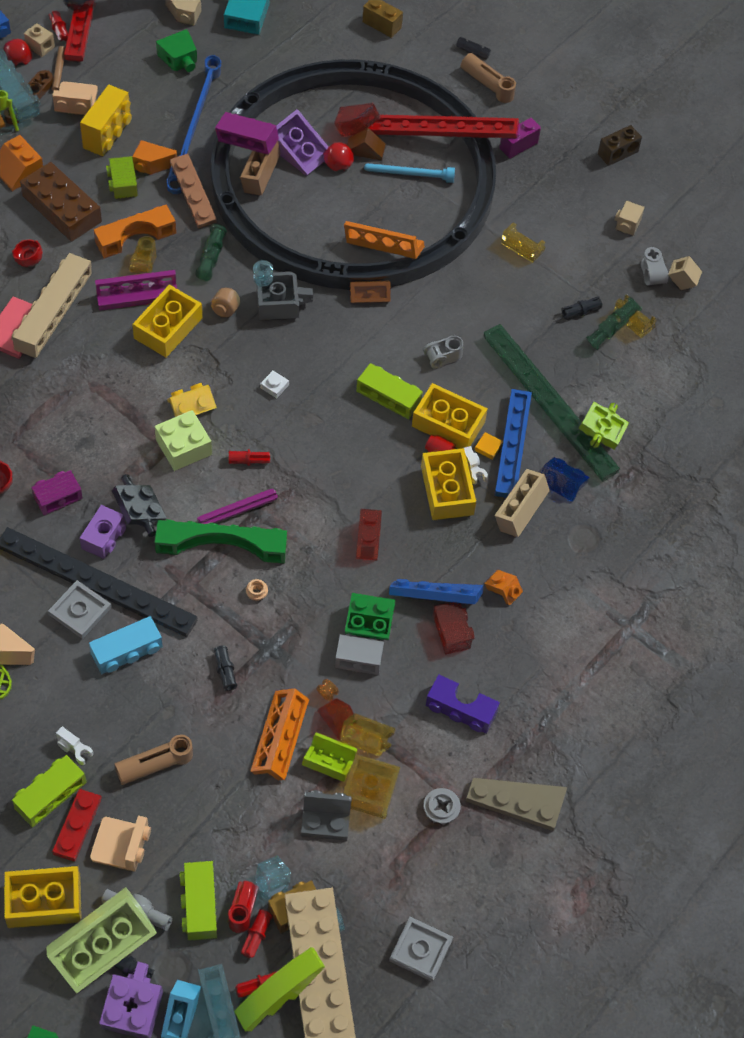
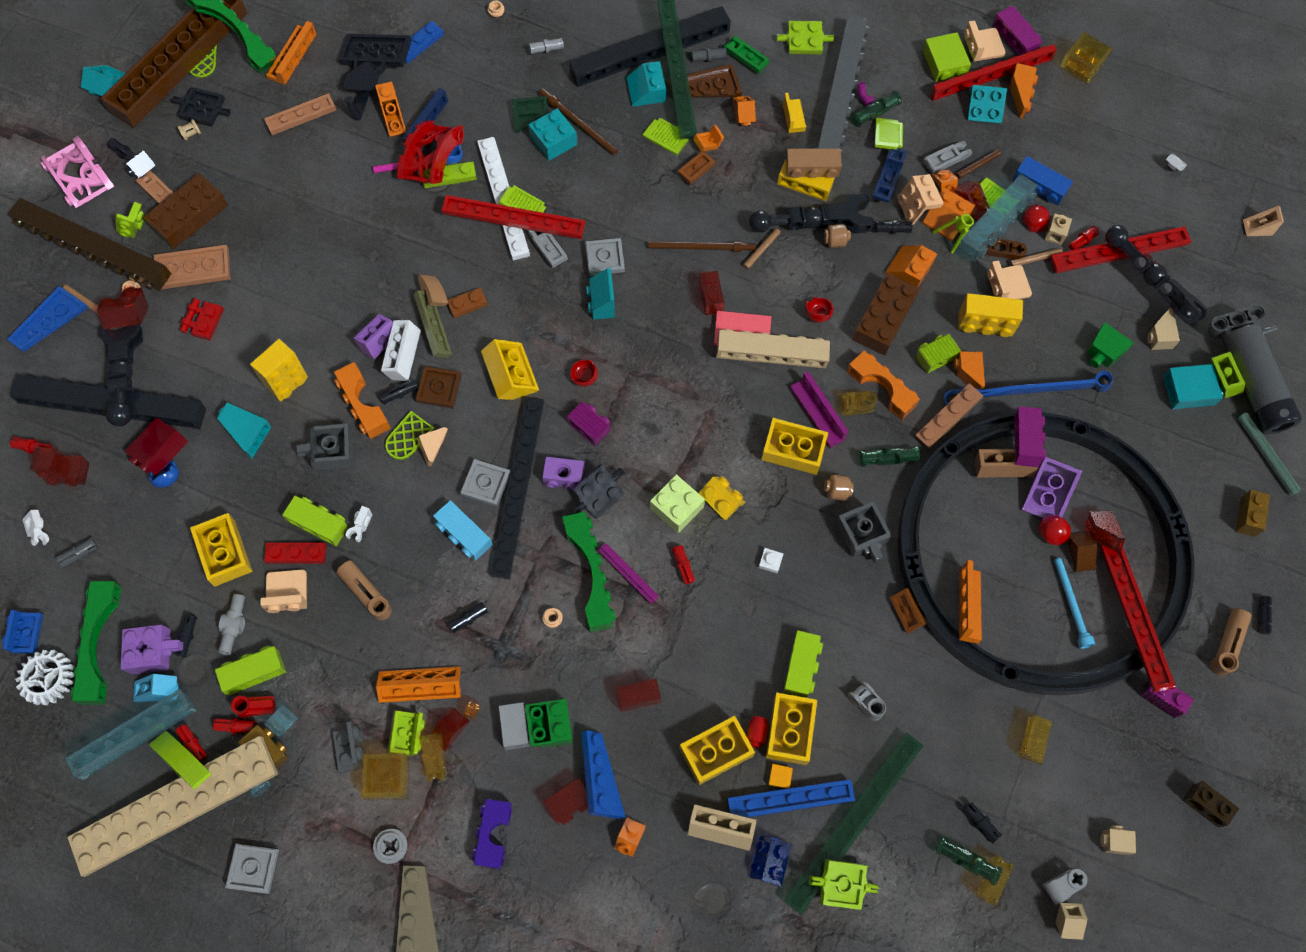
camera: 75 degrees right, 10 degrees up
(100, 940) = (193, 605): yellowish green slope -> none
(259, 276) = (870, 510): clear light blue wheel -> none
(473, 462) = (753, 765): white plate -> none

